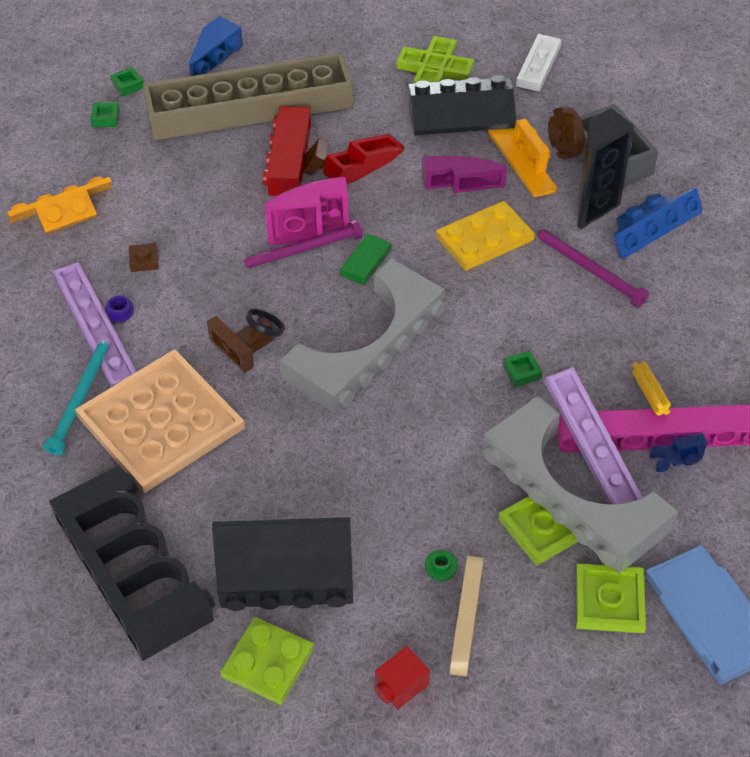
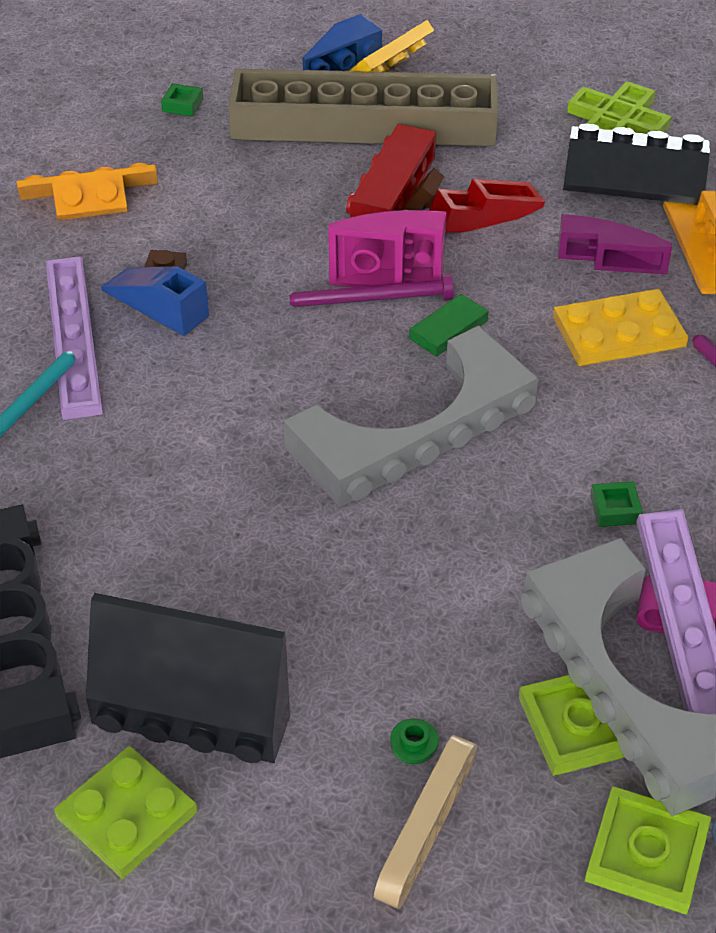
camera: 15 degrees right, 5 degrees down
(119, 309) = (109, 320): dark purple plate -> none
(127, 81) = (221, 68): green plate -> none
(152, 280) = (162, 294): none -> blue slope
(160, 420) = (105, 464): light nougat plate -> none
(244, 343) = (257, 392): reddish brown piece -> none
(255, 45) = (396, 51): none -> yellow plate
(401, 678) = (300, 885): red brick -> none

